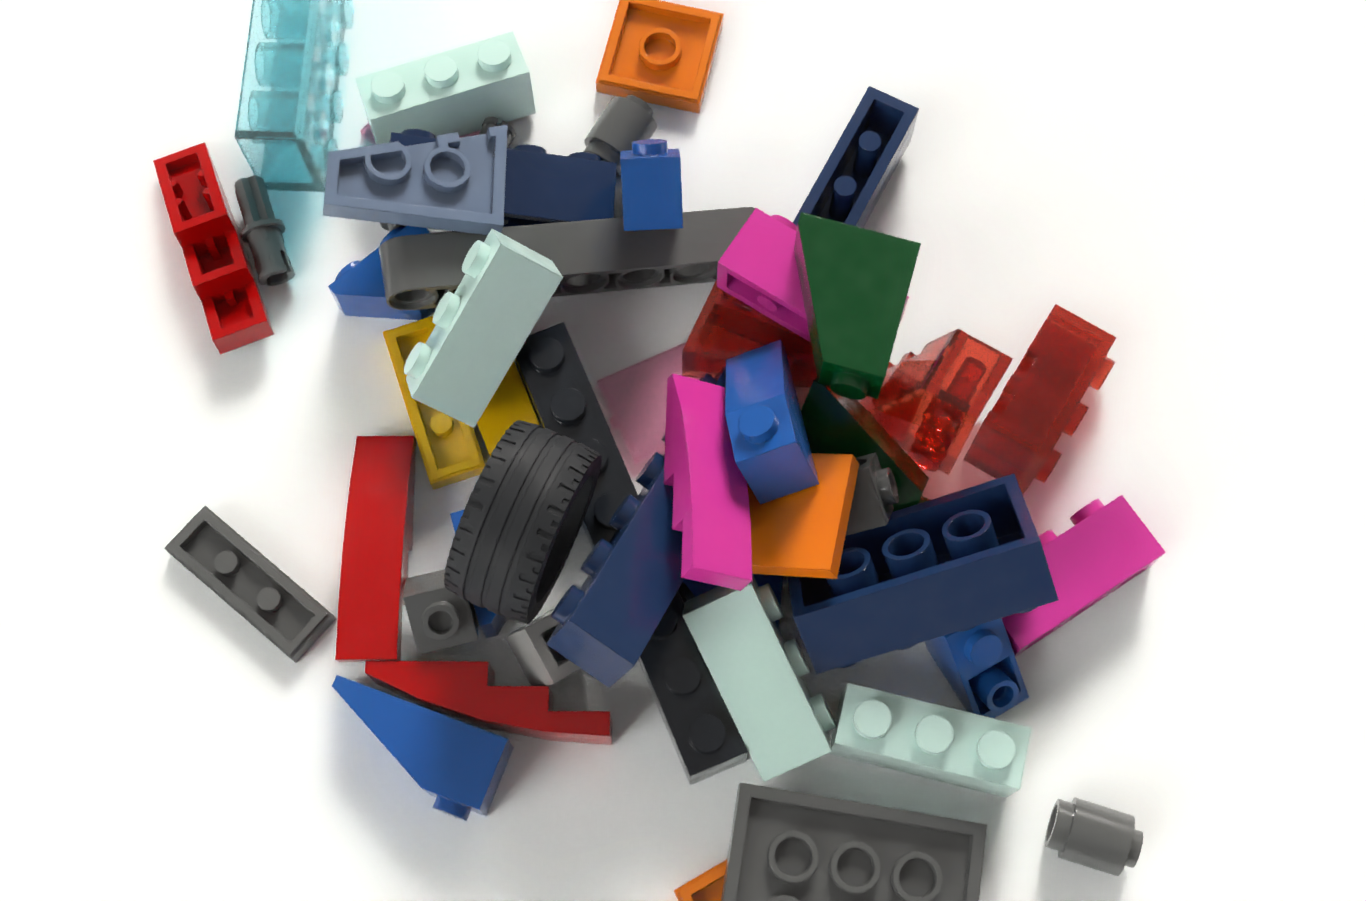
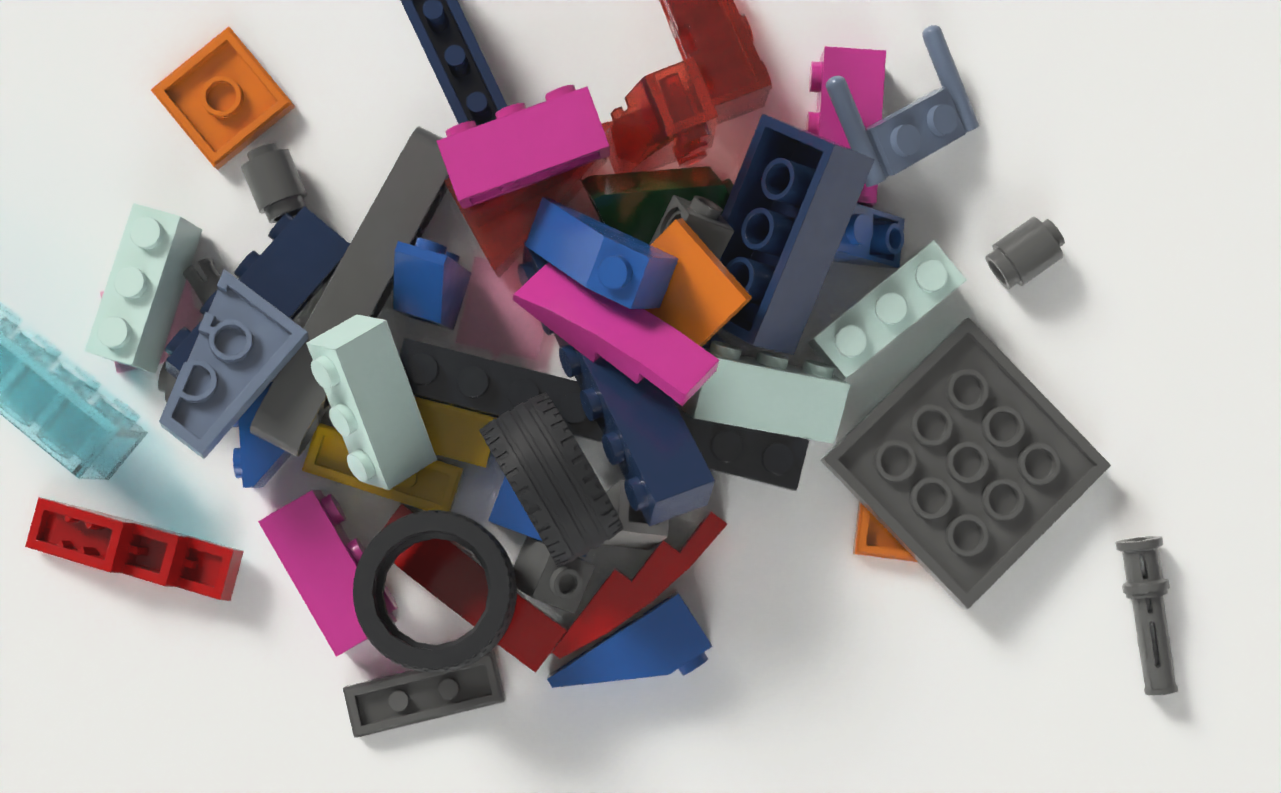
camera: 55 degrees left, 15 degrees up
(263, 232) = (151, 503): dark grey axle -> none
(305, 416) = (321, 564): none -> dark pink brick
(314, 443) = (371, 580): none -> black tyre
(630, 311) = (429, 283): none -> blue slope
(651, 186) = (361, 204): blue slope -> none
(852, 300) = (568, 132): dark green slope -> none
(1115, 633) = (914, 129): none -> sand blue plate

